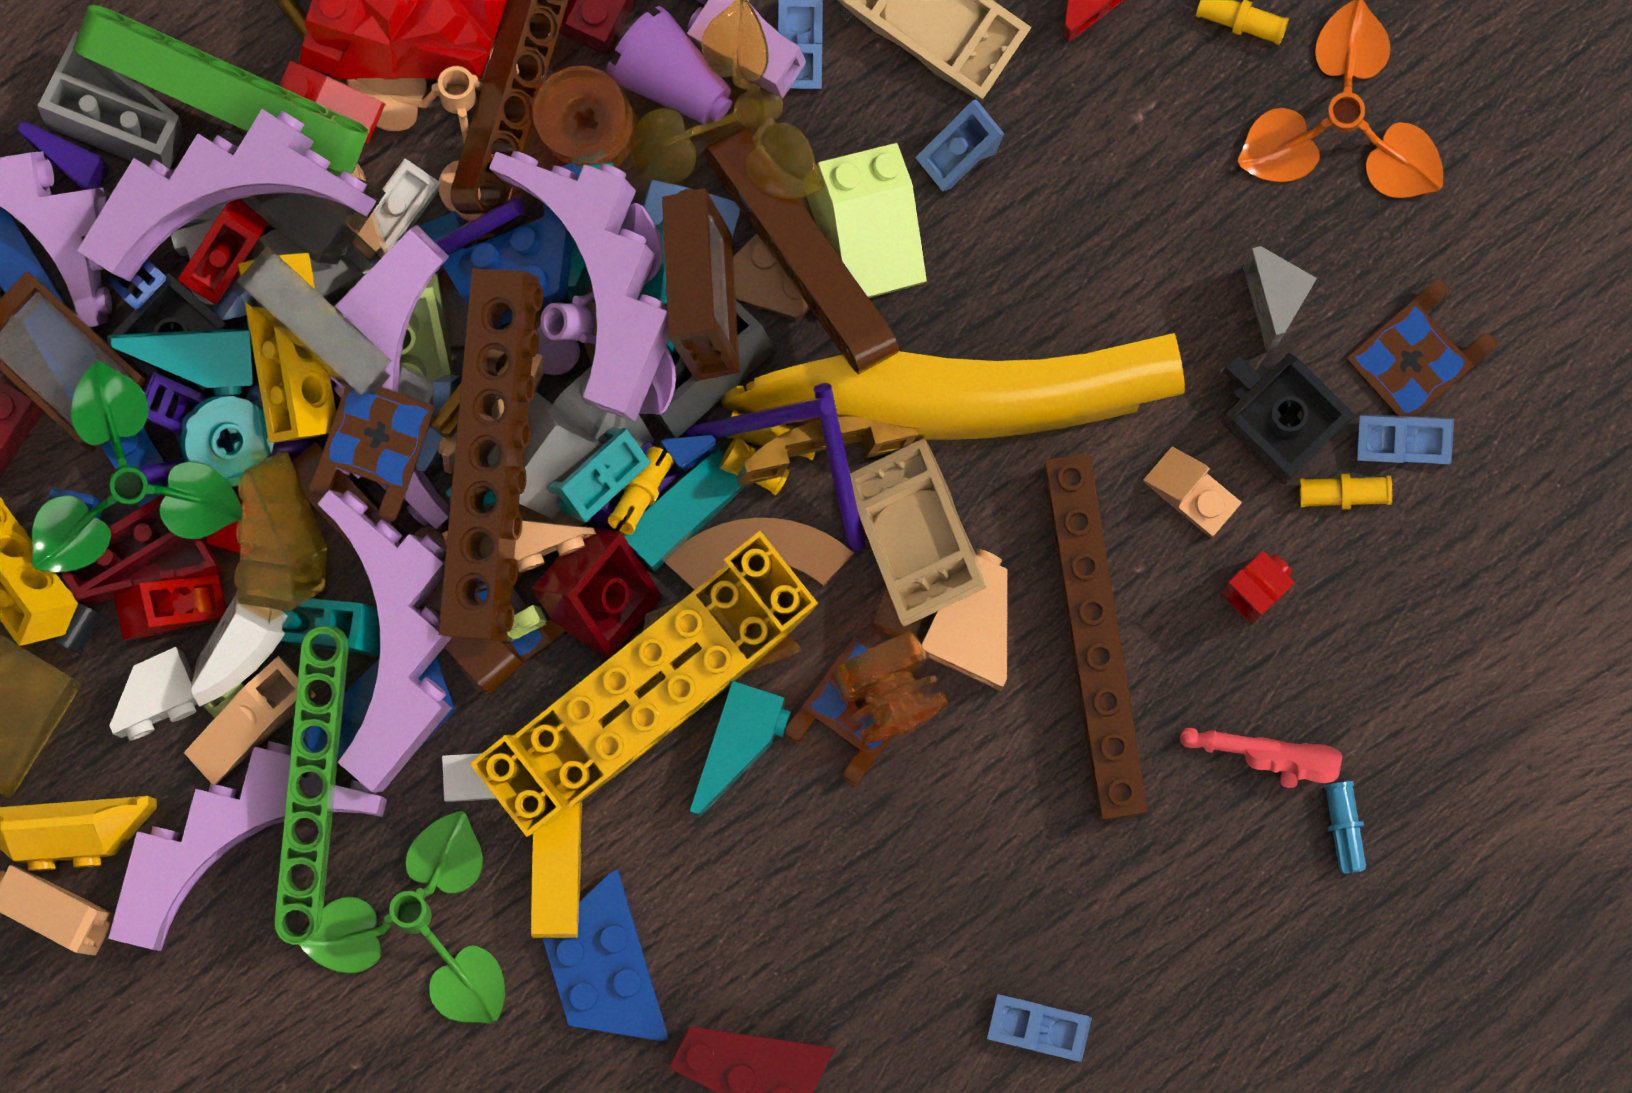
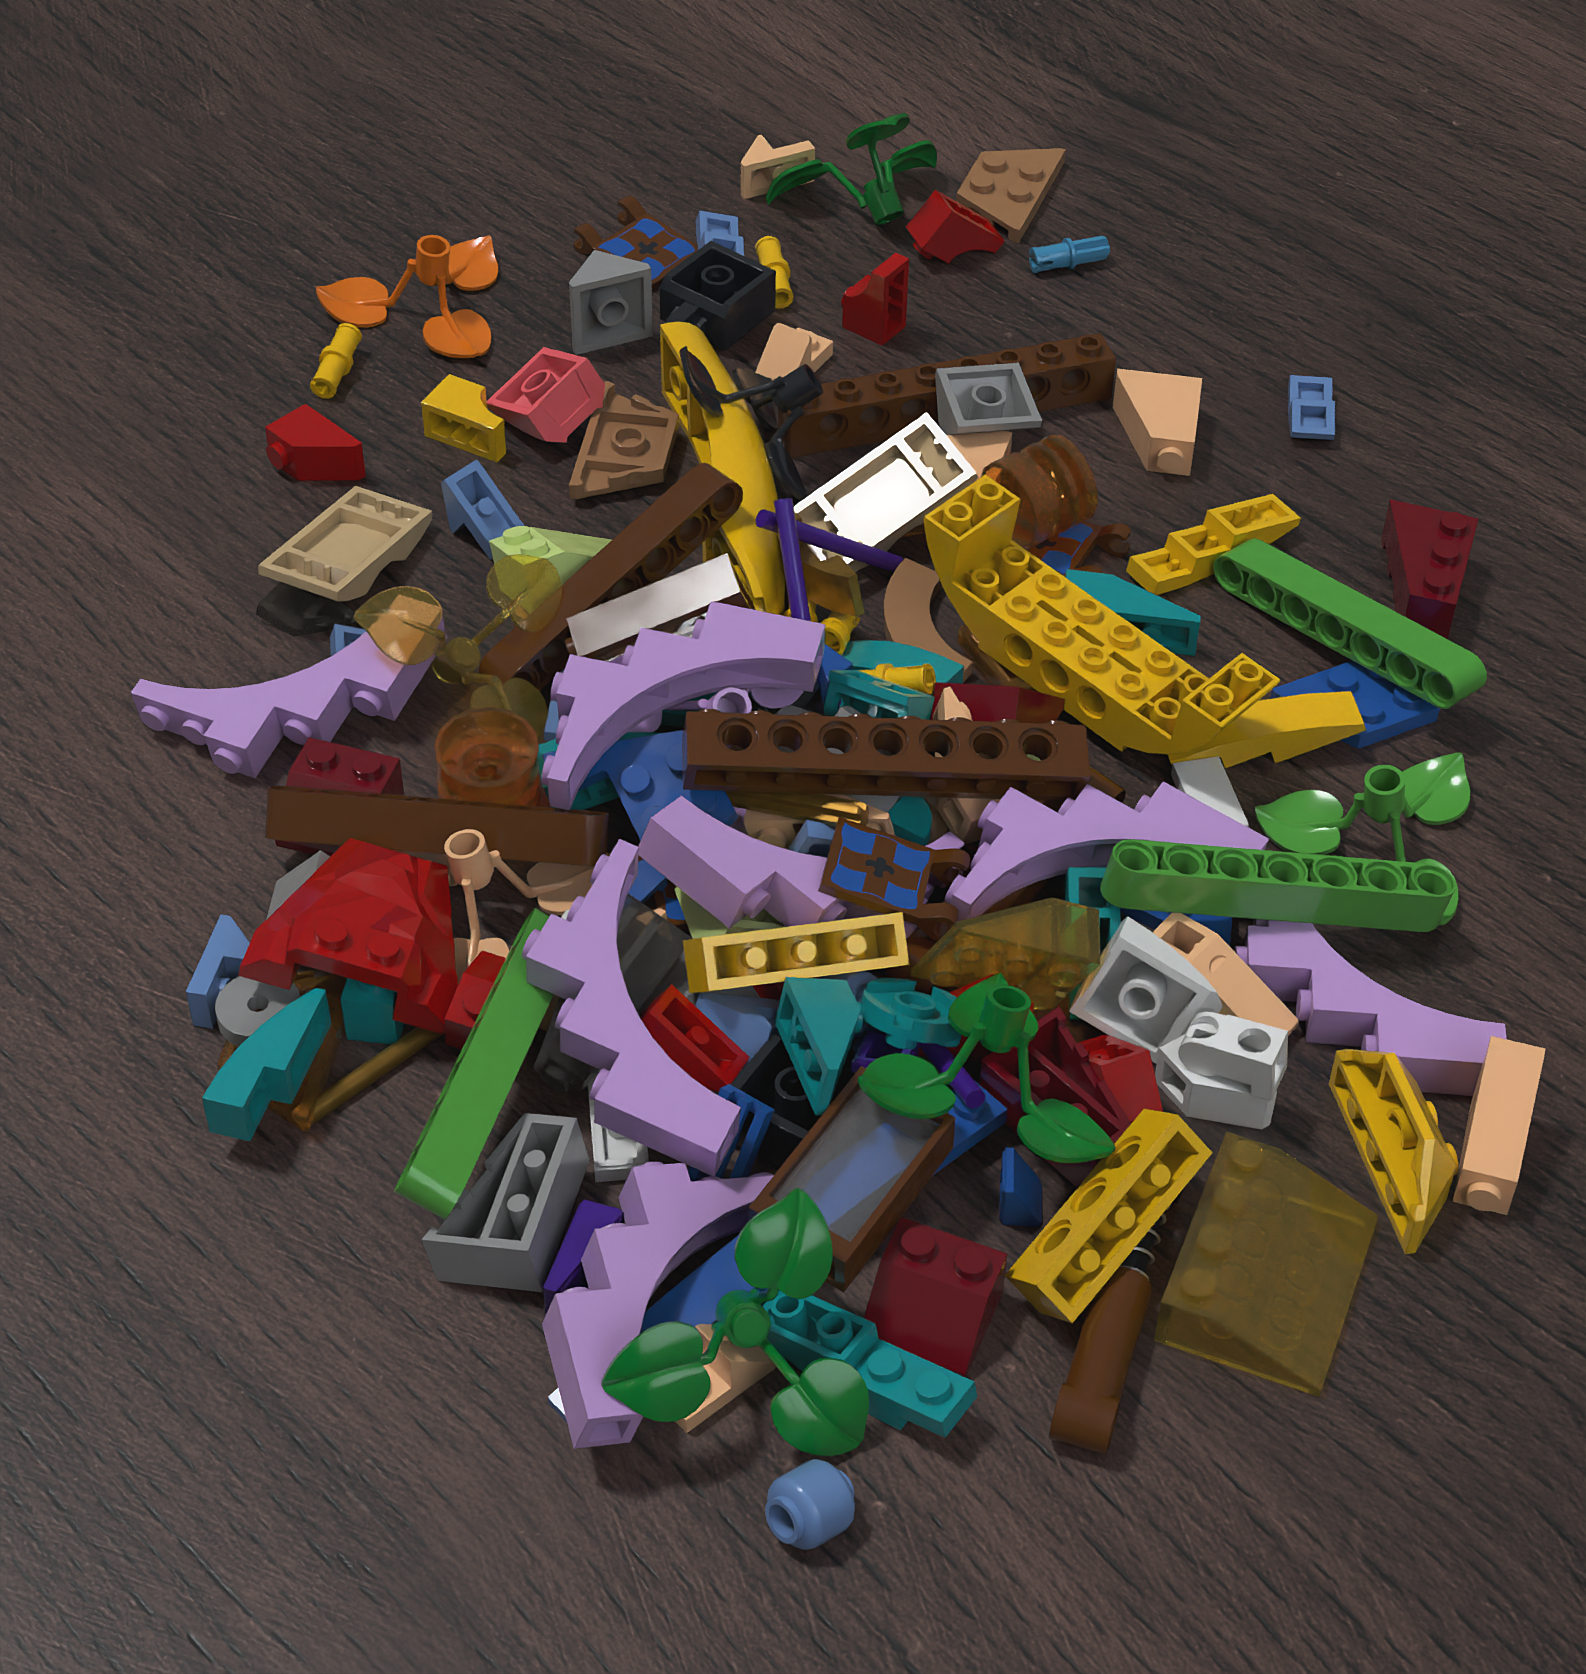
camera: 105 degrees left, 35 degrees down
(138, 699) = (1237, 1051): none -> white leg
(312, 324) = (769, 881): clear smoke slope -> none
(481, 225) = (630, 833): dark purple bar -> none
(669, 69) = (412, 712): medium lavender cone -> none
(673, 958) = (1351, 623): none -> bright green beam
(834, 867) = (1192, 551): none -> yellow slope
(1029, 858) = (1159, 417): none -> light nougat slope
(1039, 664) = (984, 399): none -> light grey slope
(1068, 297) = (624, 446): none -> medium nougat wing
(1108, 432) = (787, 393): none -> black plant
(1129, 136) = (459, 417): none -> yellow arch
(1134, 220) = (550, 395): none -> coral slope
(1295, 761) = (1021, 287): coral piece -> none
(1389, 701) = (949, 229): none -> red arch
(1468, 620) = (880, 192): none -> green plant
(1490, 788) = (1010, 186): none -> medium nougat wing
(1537, 506) = (764, 164): none -> light nougat slope

